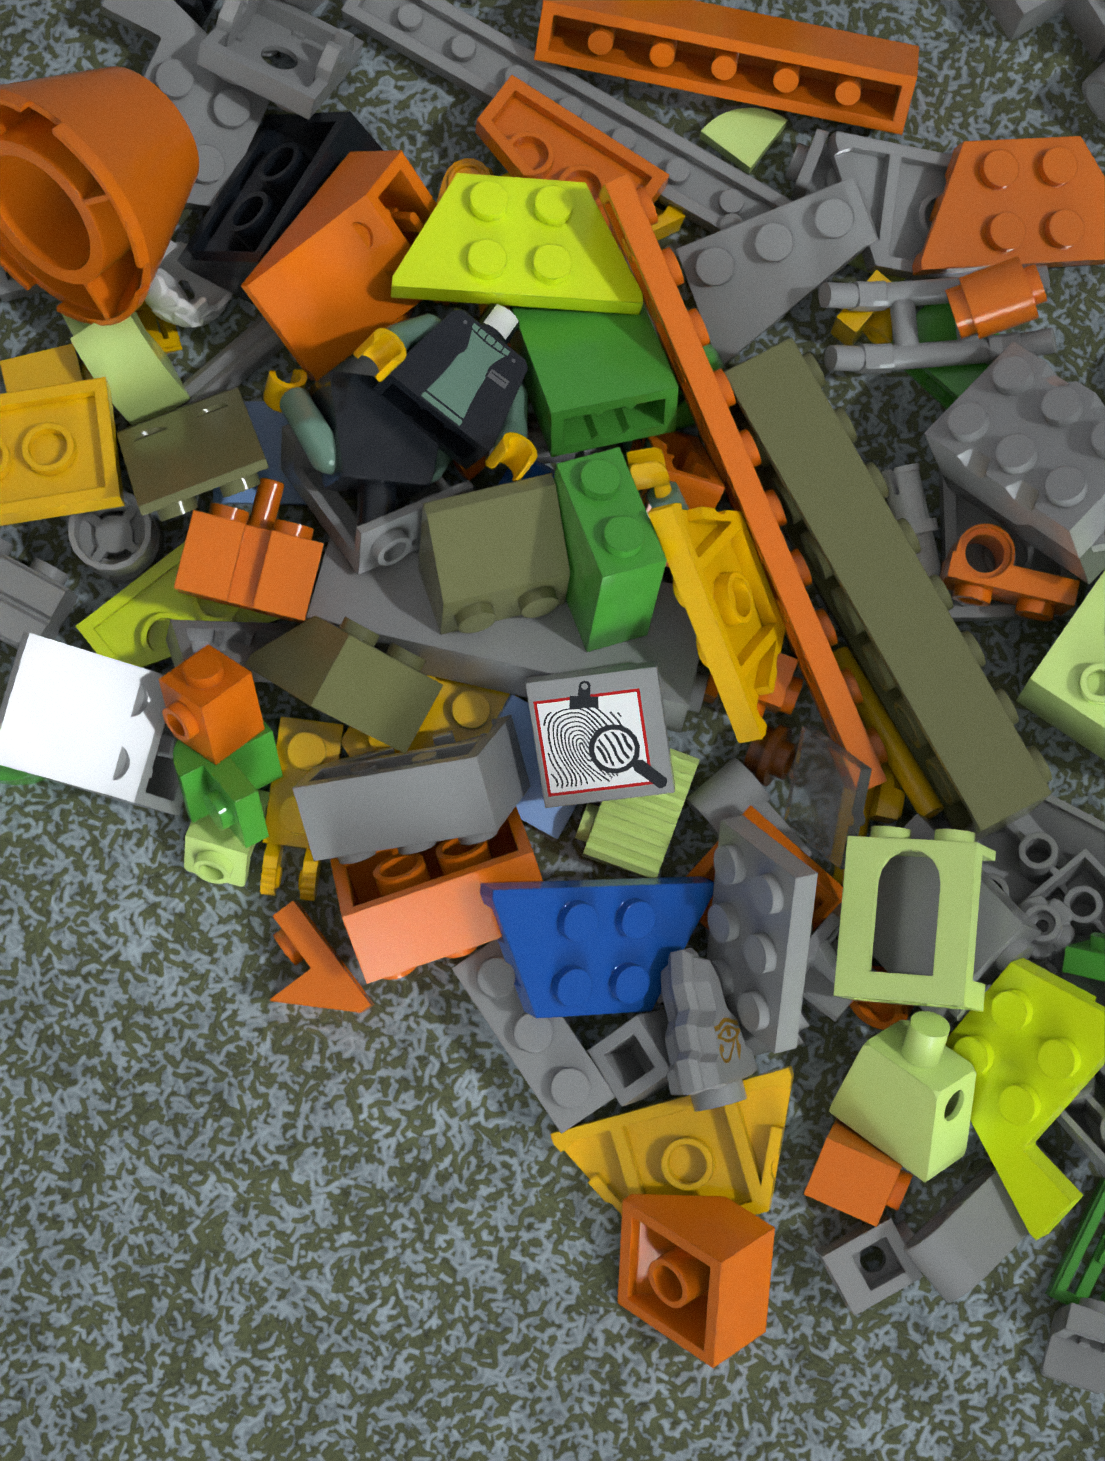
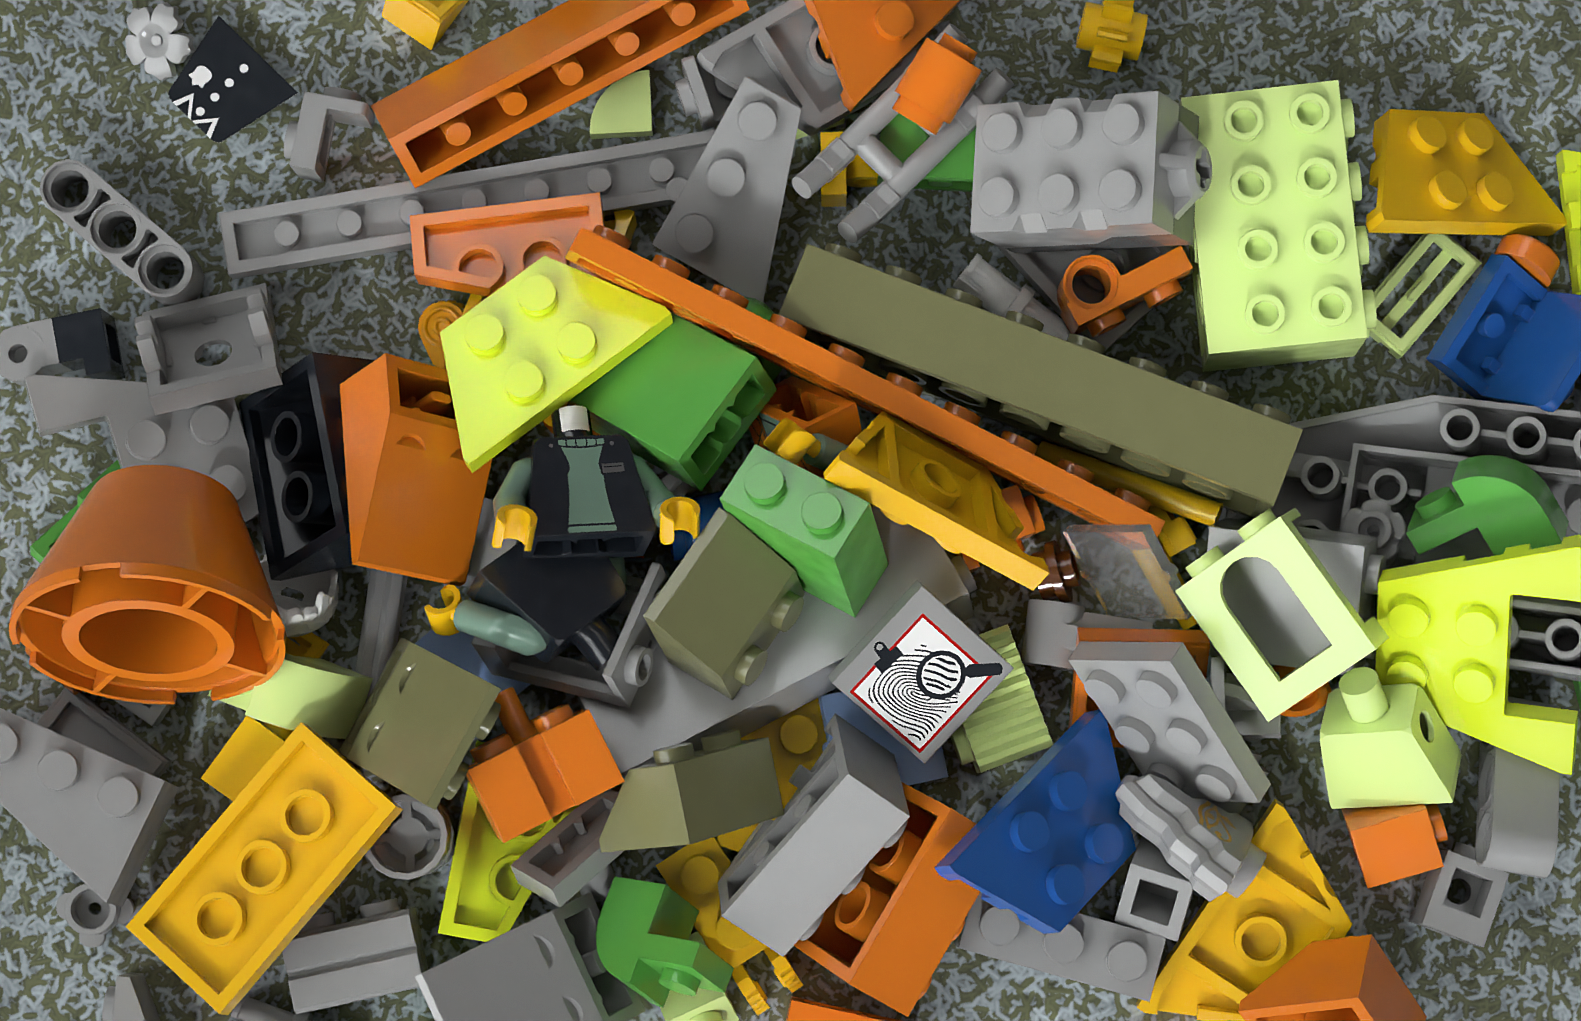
camera: 40 degrees left, 0 degrees up
(211, 704) = (604, 905): orange brick -> none

